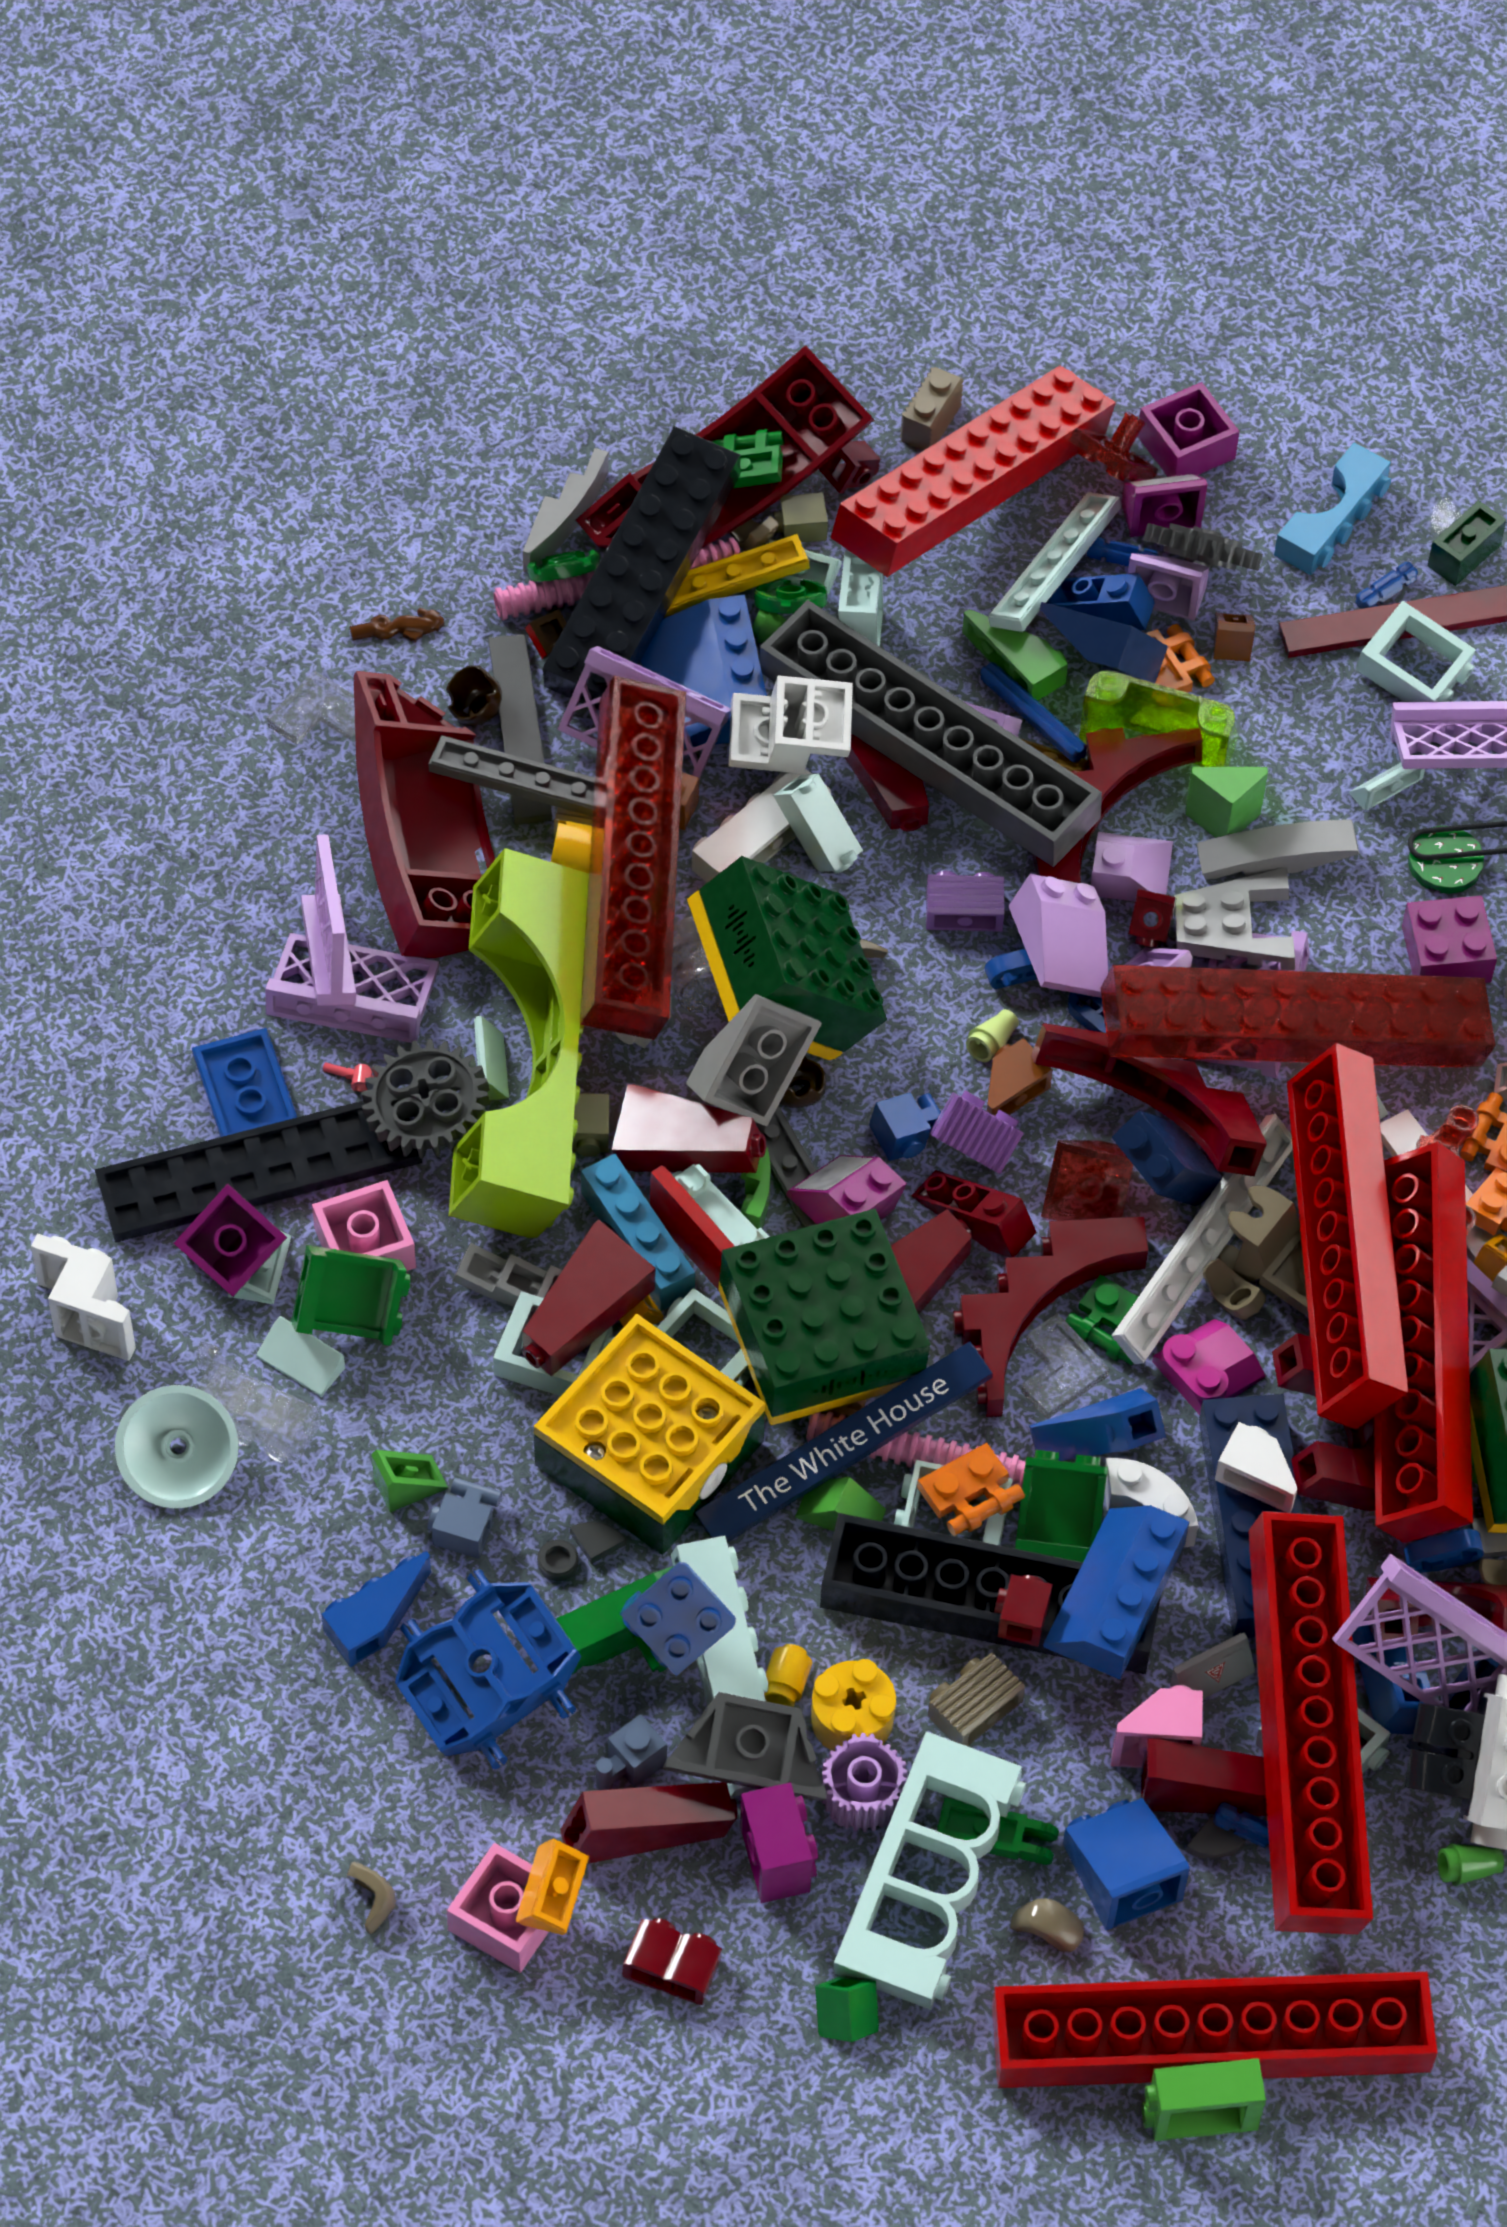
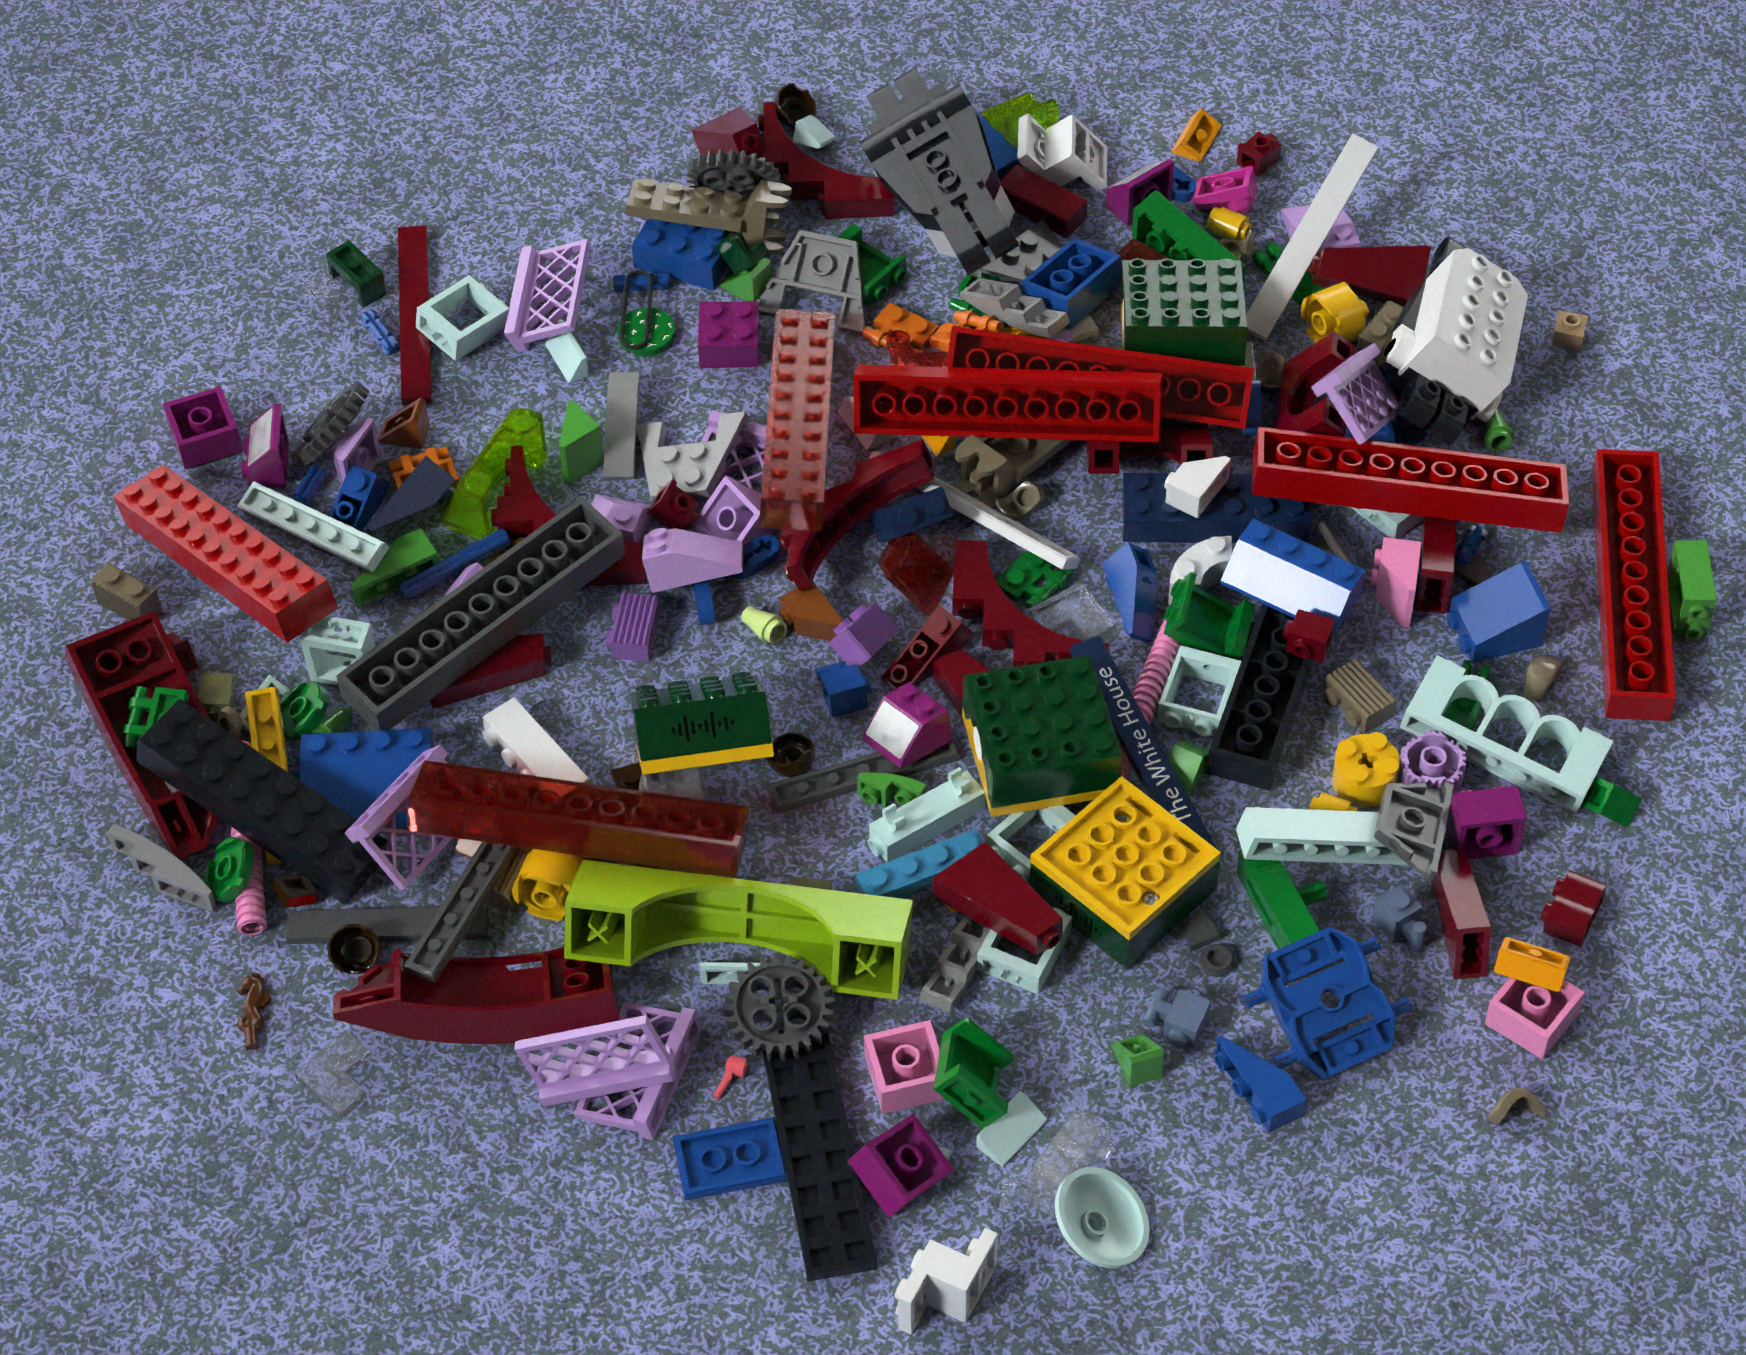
camera: 80 degrees left, 5 degrees down
(678, 1617) = (1317, 849): blue bracket -> none
(681, 1132) = (838, 832): slope -> none
(688, 1224) = (935, 824): red tile -> none
(754, 1059) = (801, 761): light grey slope -> none
(790, 724) = (461, 701): white bracket -> none
(818, 823) = (550, 706): light aqua brick -> none
(965, 1480) = (1184, 672): orange plate -> none
(1116, 450) = (211, 472): clear red plate -> none
(1209, 1363) = (1079, 525): dark pink slope -> none
(1311, 537) = (277, 332): dark azure arch -> none

